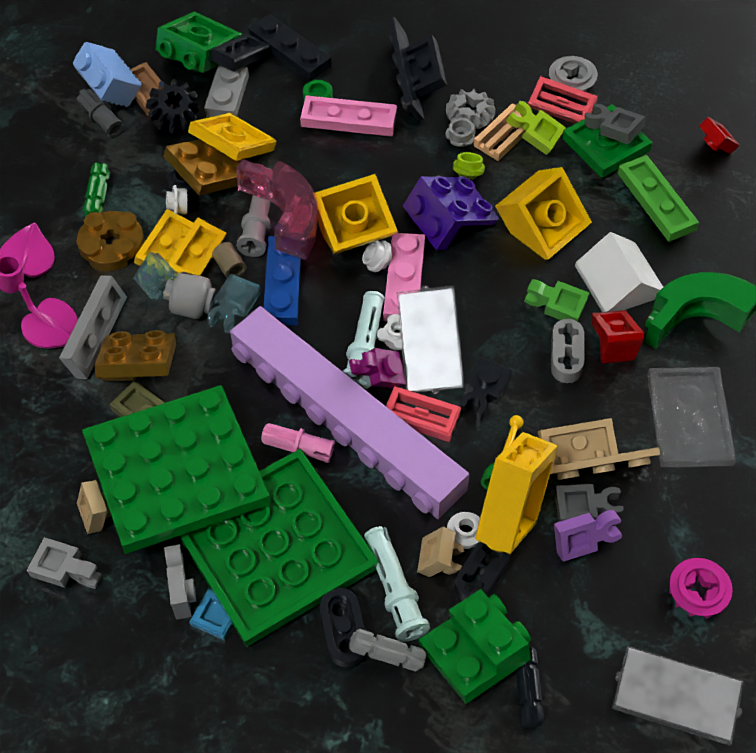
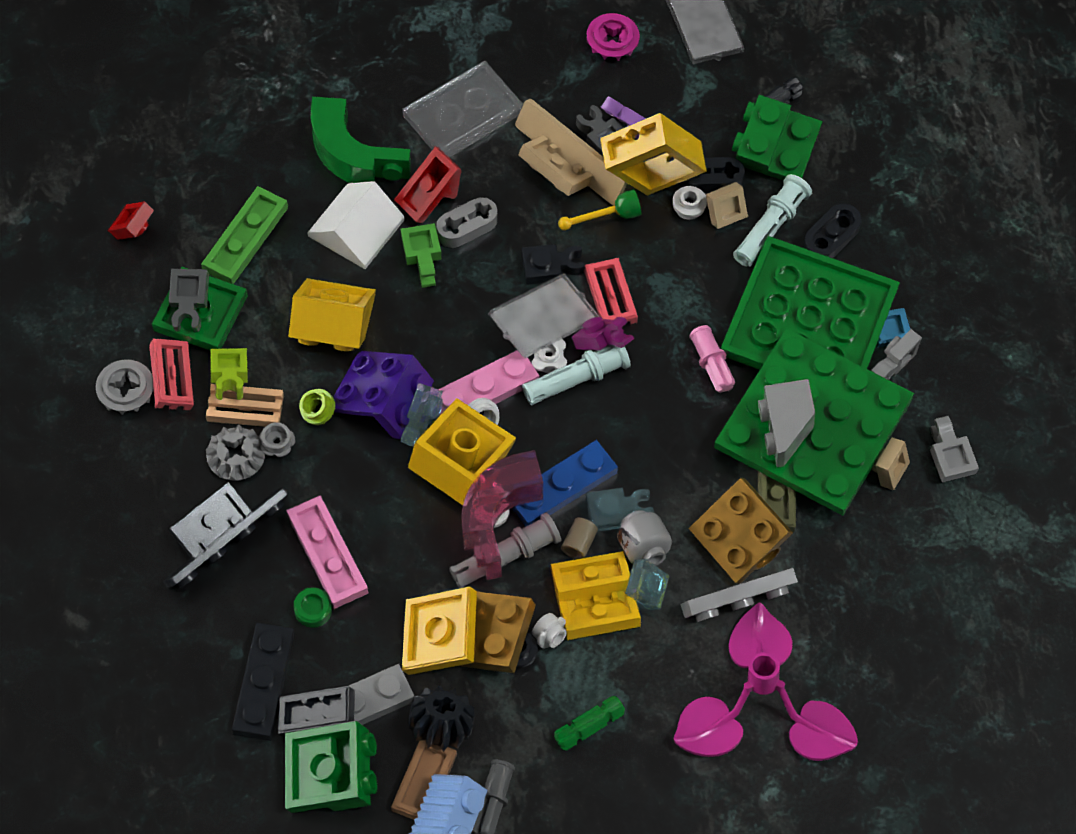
camera: 130 degrees left, 5 degrees up
(108, 224) = (636, 643): pearl gold plate -> none
(183, 423) = (789, 417): none -> light grey slope
(350, 413) = (656, 345): lavender brick -> none
(387, 650) = (828, 189): light grey axle -> none
(409, 214) = (423, 409): none -> clear light blue plate

